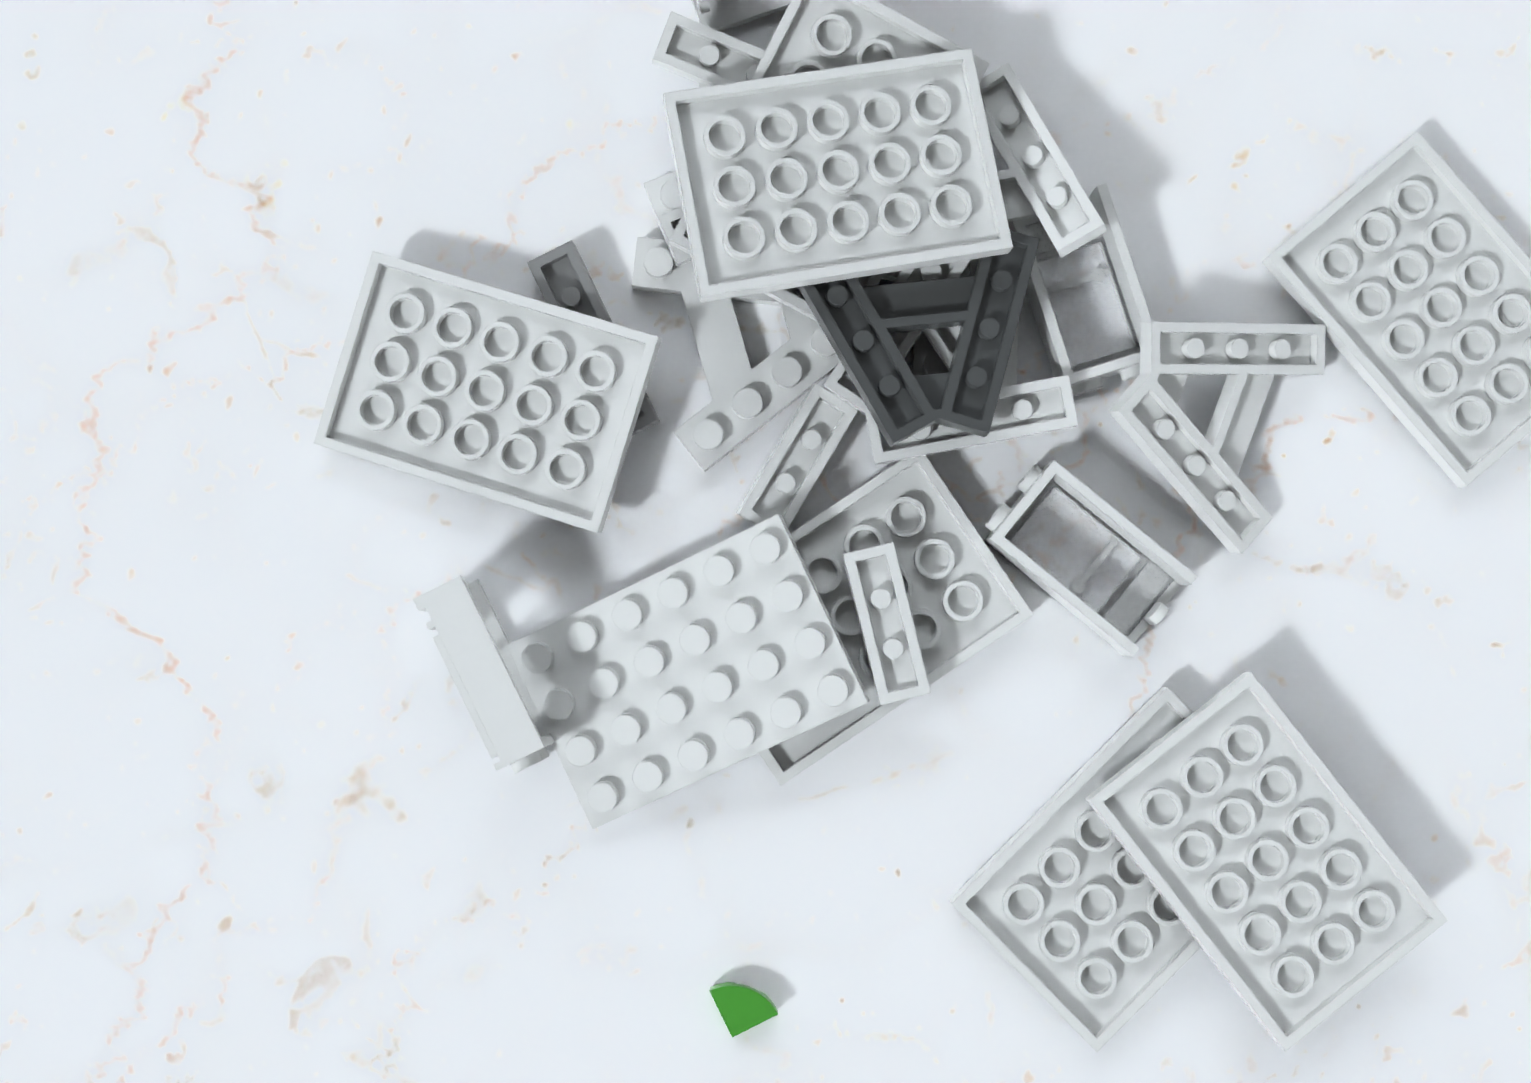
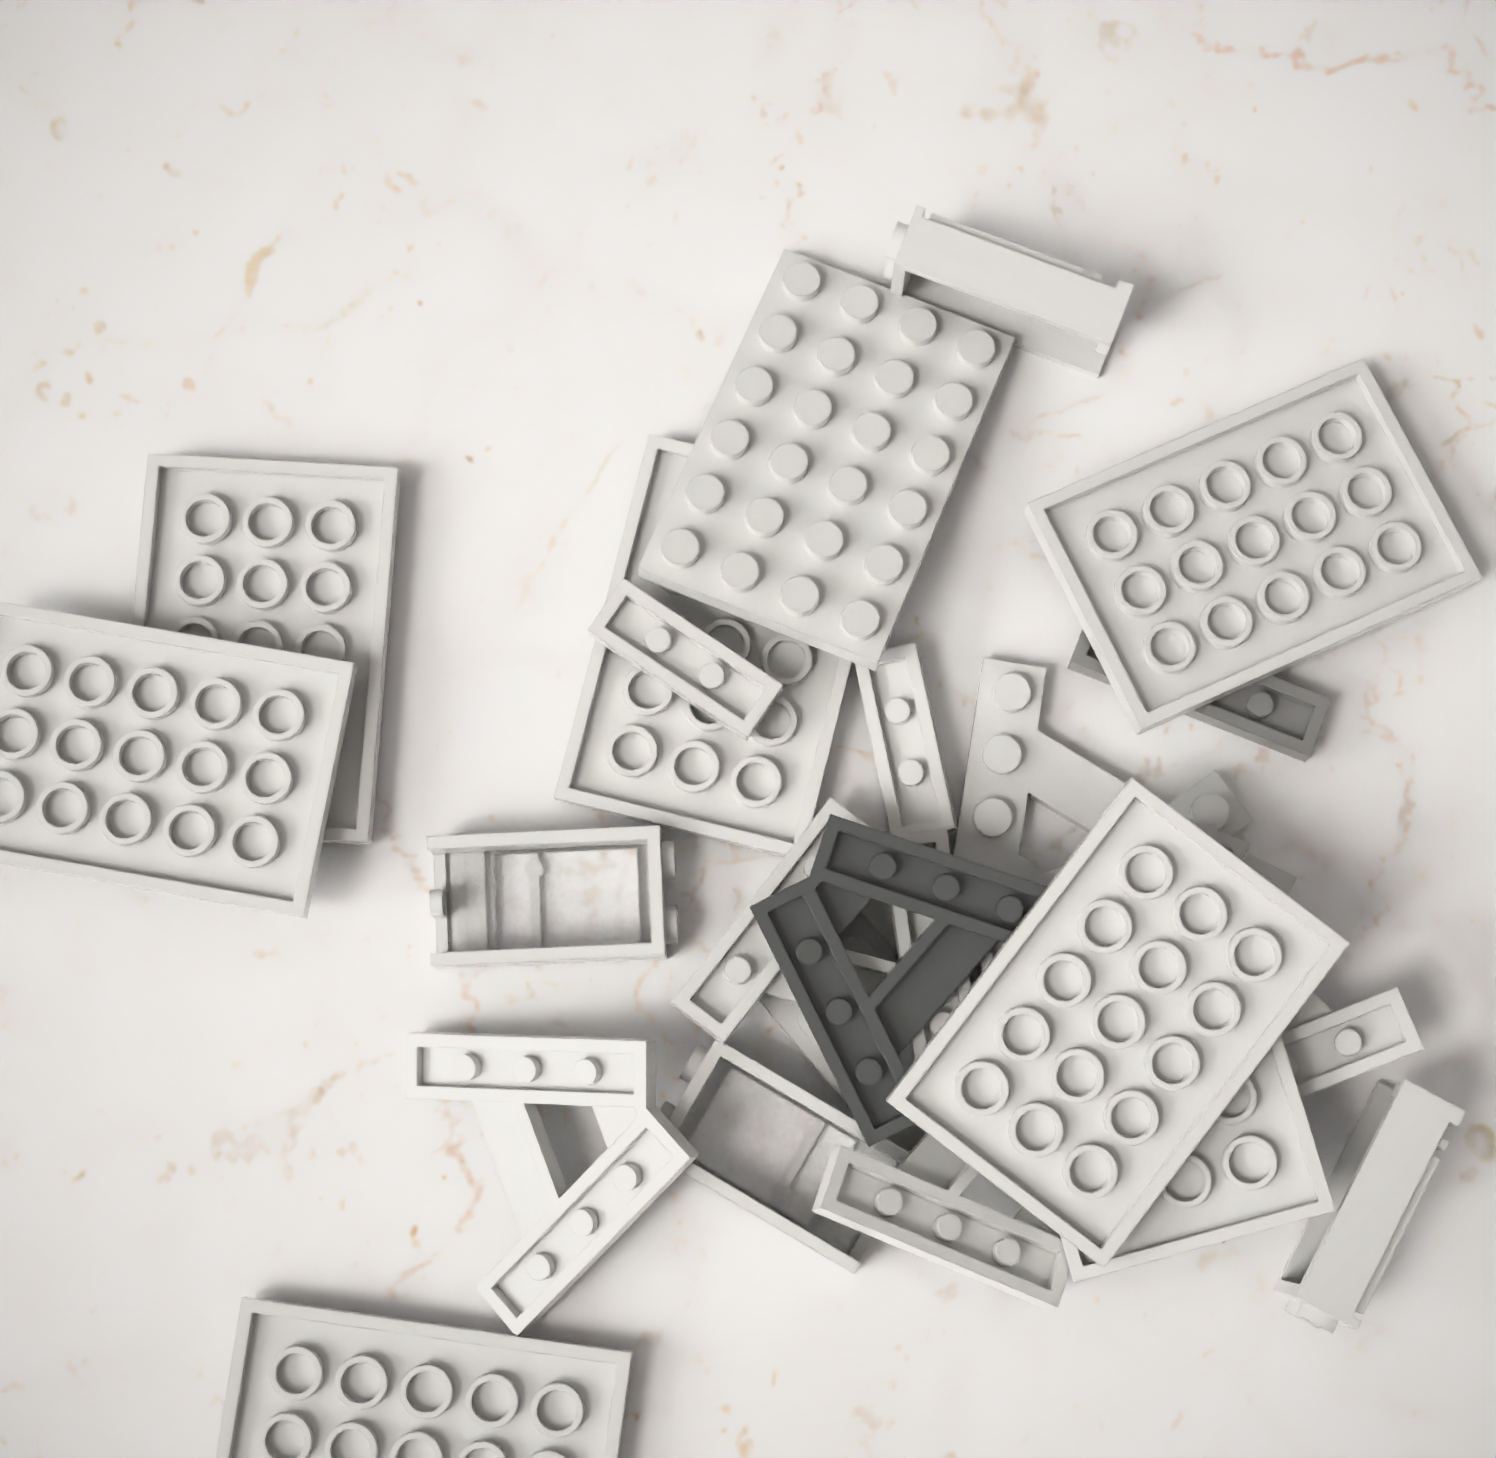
camera: 145 degrees right, 5 degrees down
(742, 1006) = (507, 216): bright green tile -> none

